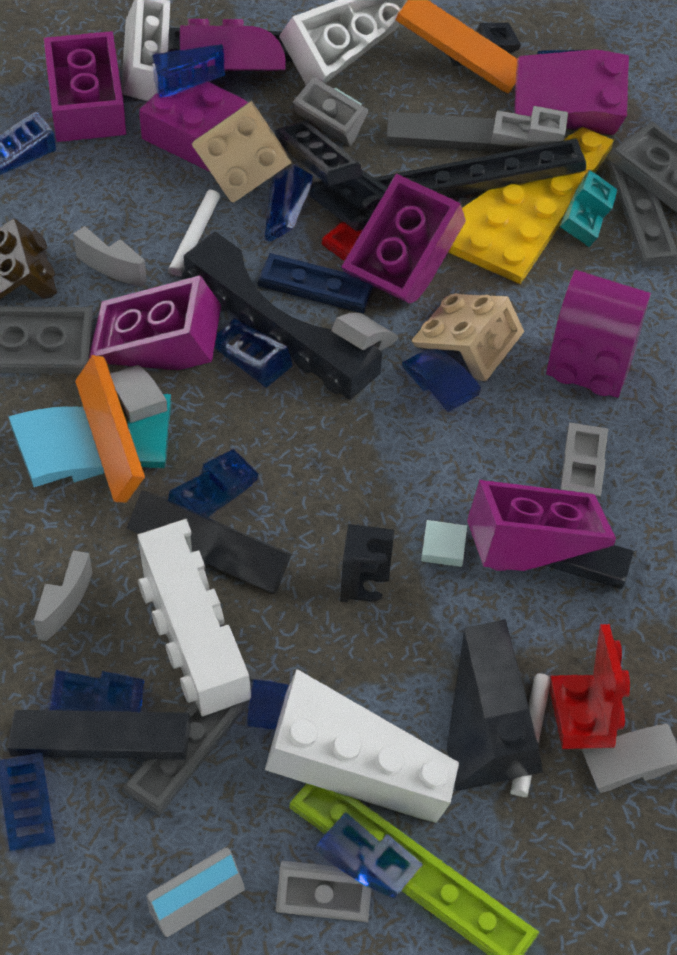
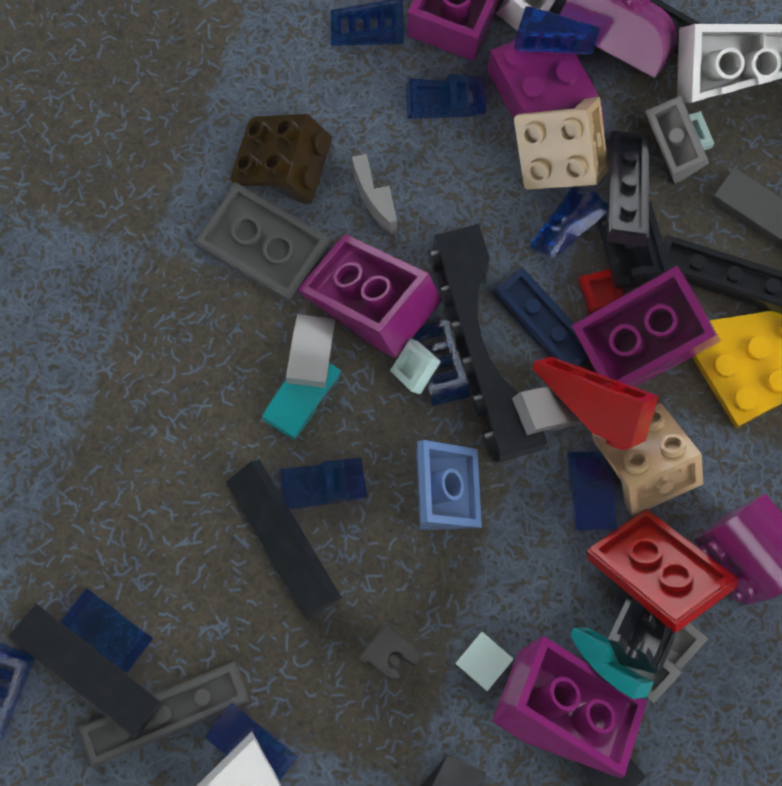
camera: 35 degrees right, 20 degrees up
(56, 444) = (219, 366): medium azure slope -> none
(61, 601) = (120, 527): light grey slope -> none
(109, 429) = (266, 378): orange tile -> none
(127, 165) = (444, 99): none -> clear blue slope
(191, 619) = (213, 619): white wedge -> none
(194, 231) = (470, 204): white bar -> none
(232, 358) = (415, 366): none -> light aqua tile
(318, 433) = (447, 486): none -> medium blue slope
(413, 299) = (601, 403): none -> red slope
(536, 388) = (662, 570): none -> red tile
(537, 475) = (602, 658): none -> teal slope
(555, 436) = (640, 638): none -> black hinge

